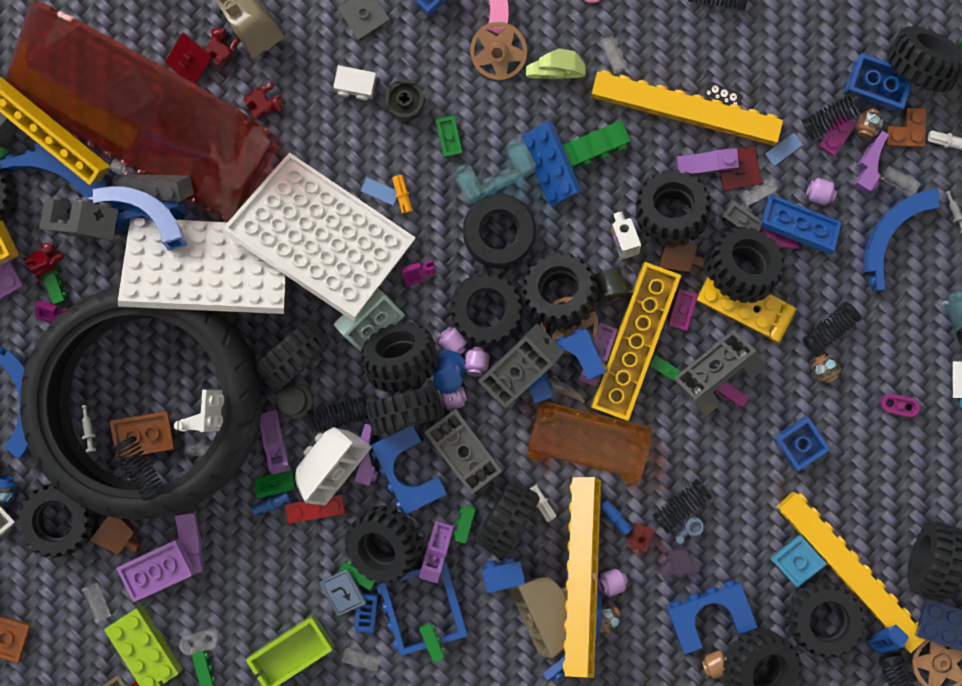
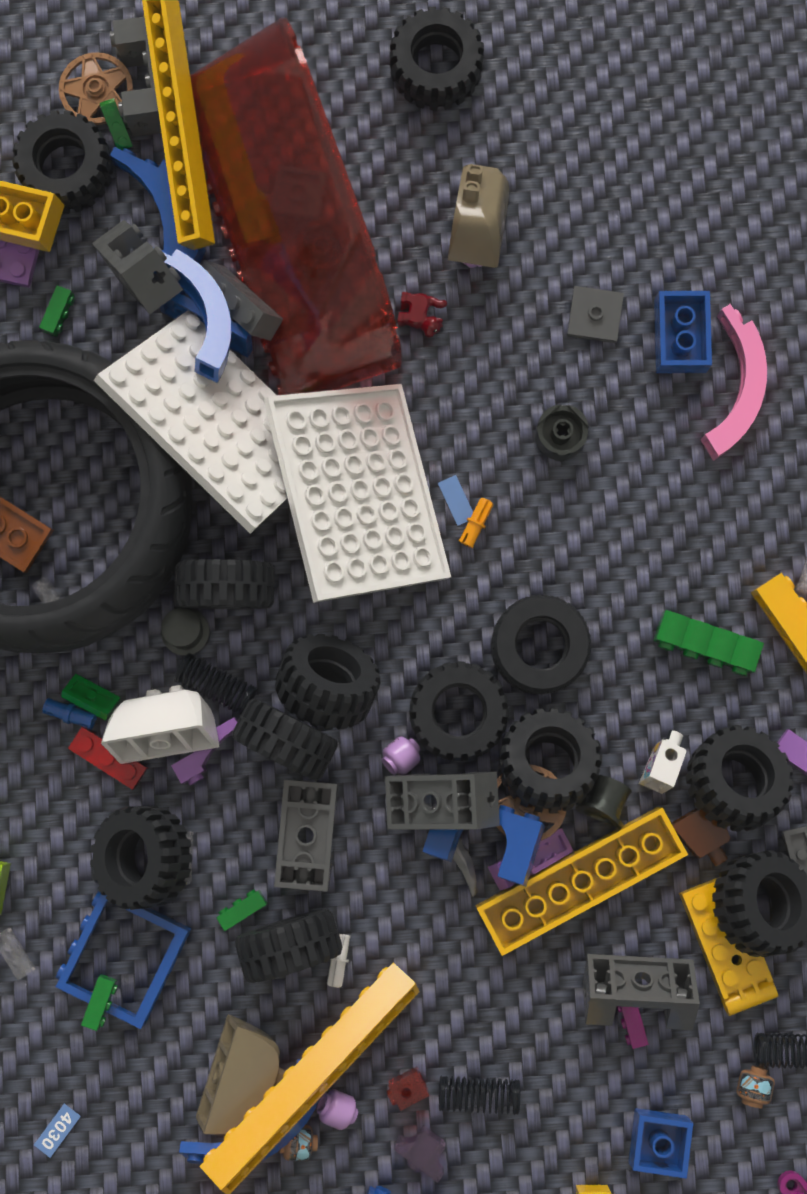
camera: 45 degrees right, 5 degrees down
(40, 261) = (64, 277): dark red animal -> none
(47, 311) = (26, 328): magenta plate -> none
(118, 168) = (221, 252): clear piece -> none
(188, 58) = (385, 208): dark red piece -> none
(210, 416) = (85, 567): white plate -> none
(216, 47) = (423, 227): dark red animal -> none
(274, 443) = (127, 655): medium lavender slope -> none
(343, 592) = (58, 868): sand blue piece -> none
(355, 82) = (527, 372): white brick -> none
(360, 579) = (83, 855): green piece -> none
(368, 597) = (77, 895): blue slope -> none
(376, 314) = (341, 617): light aqua slope -> none
(408, 496) = (211, 831): blue arch -> none
(415, 274) = (418, 612): magenta plate -> none
(436, 552) = (186, 913): medium lavender slope -> none
(448, 136) = (573, 506): green plate -> none
(449, 371) = (364, 740): blue piece -> none
(452, 340) = (394, 713): lavender head -> none
(453, 400) = (345, 770): lavender head -> none
(498, 50) = (699, 465): medium nougat wheel -> none
(503, 574) = (233, 998): blue brick -> none
(520, 162) = (623, 594): clear light blue plate -> none
(552, 163) = (653, 623): blue plate -> none
(557, 65) = (746, 531): yellowish green connector -> none
(590, 440) = (445, 941): clear orange windscreen -> none
(615, 517) = (401, 1044): blue pin -> none
(664, 368) = (586, 934): green piece -> none
(682, 310) = (658, 891): magenta plate -> none
(691, 525) = (471, 1126): sand blue piece -> none

